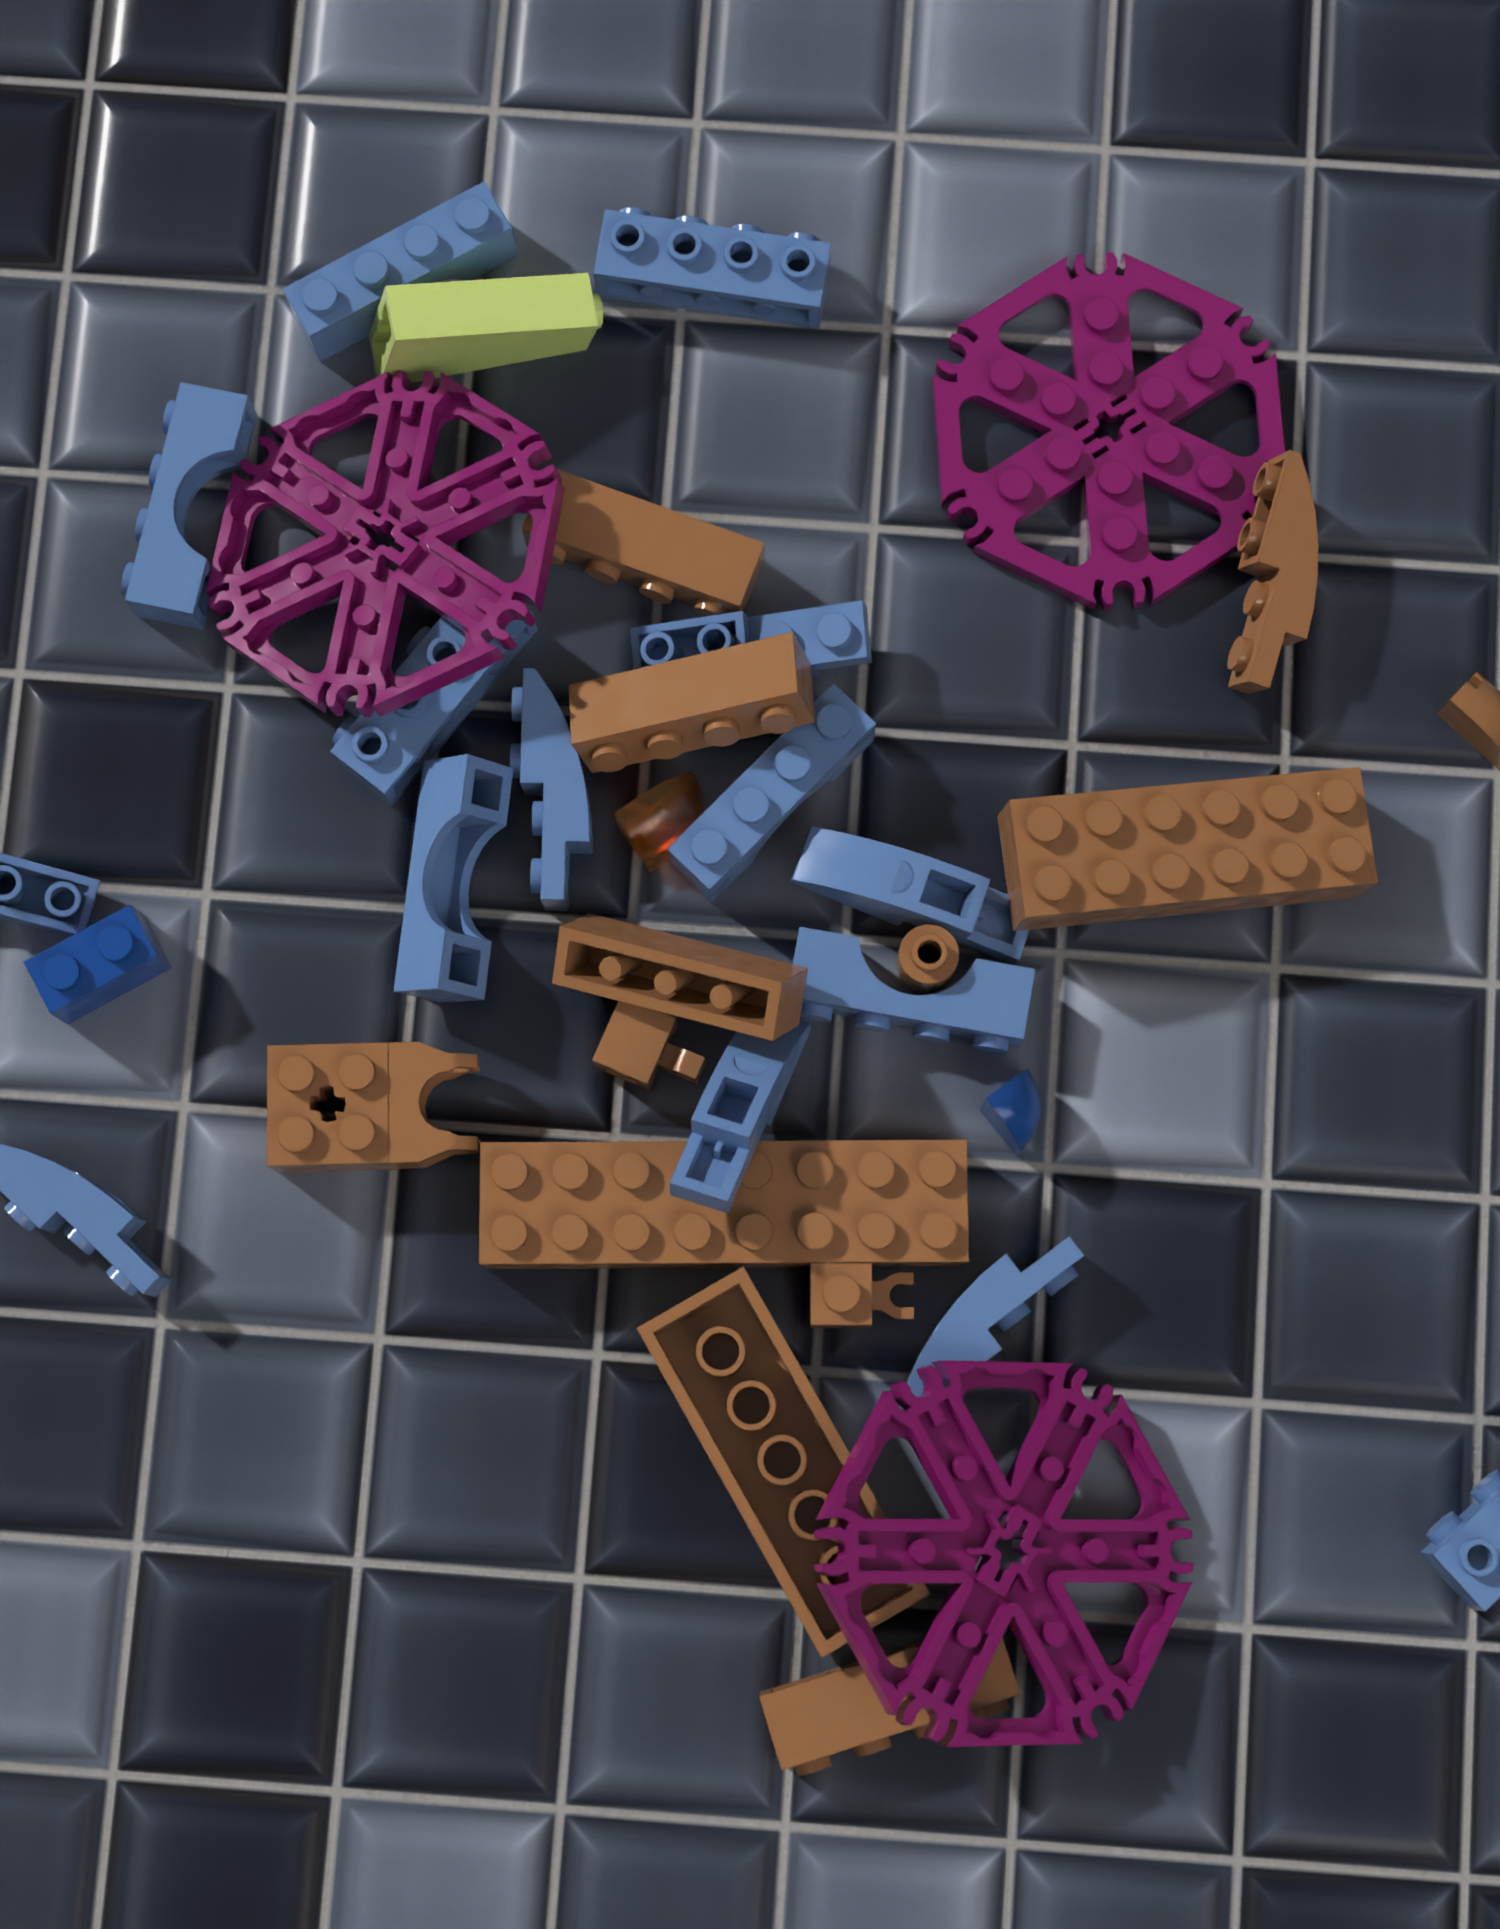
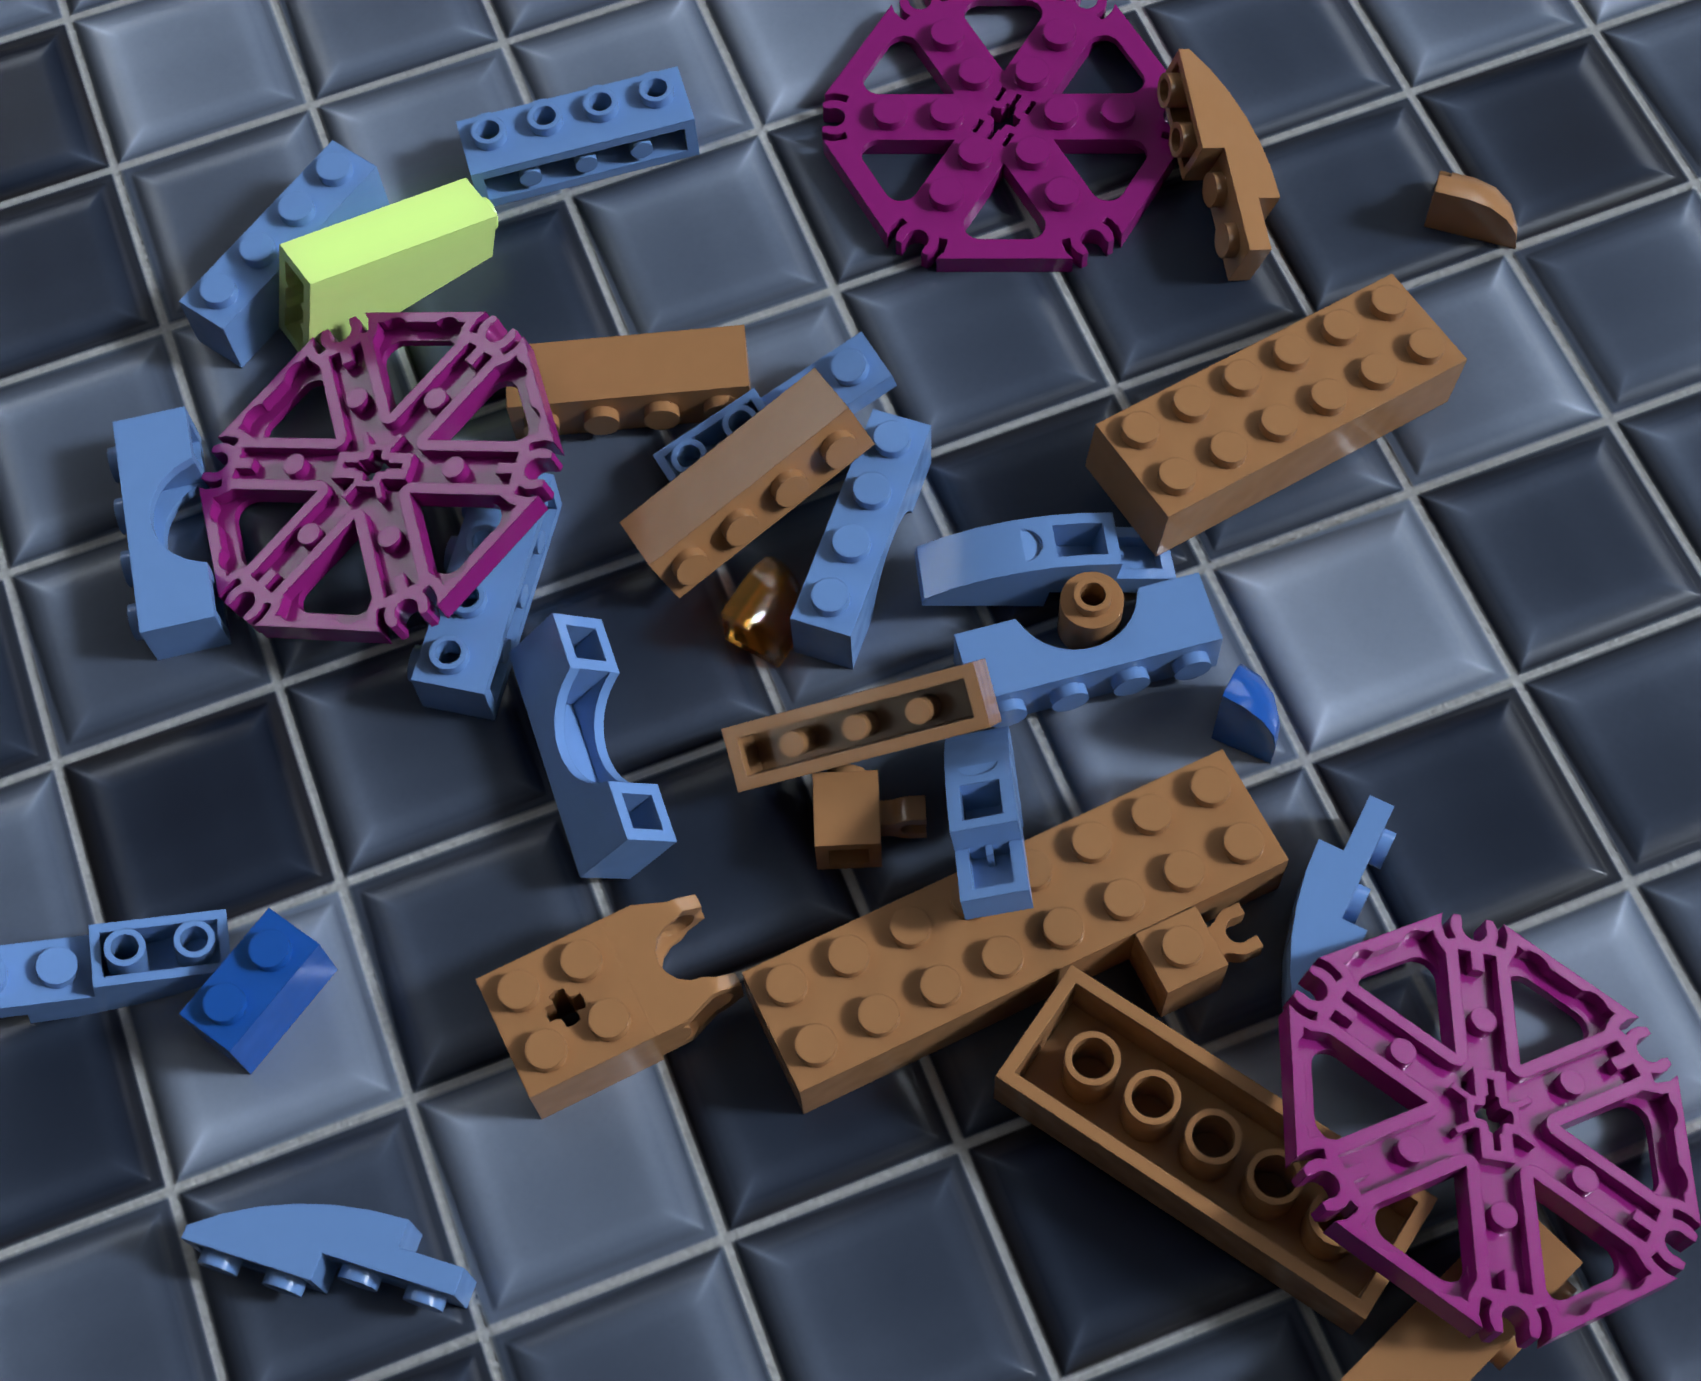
camera: 25 degrees left, 15 degrees down
(553, 770) = (650, 618): medium blue slope -> none

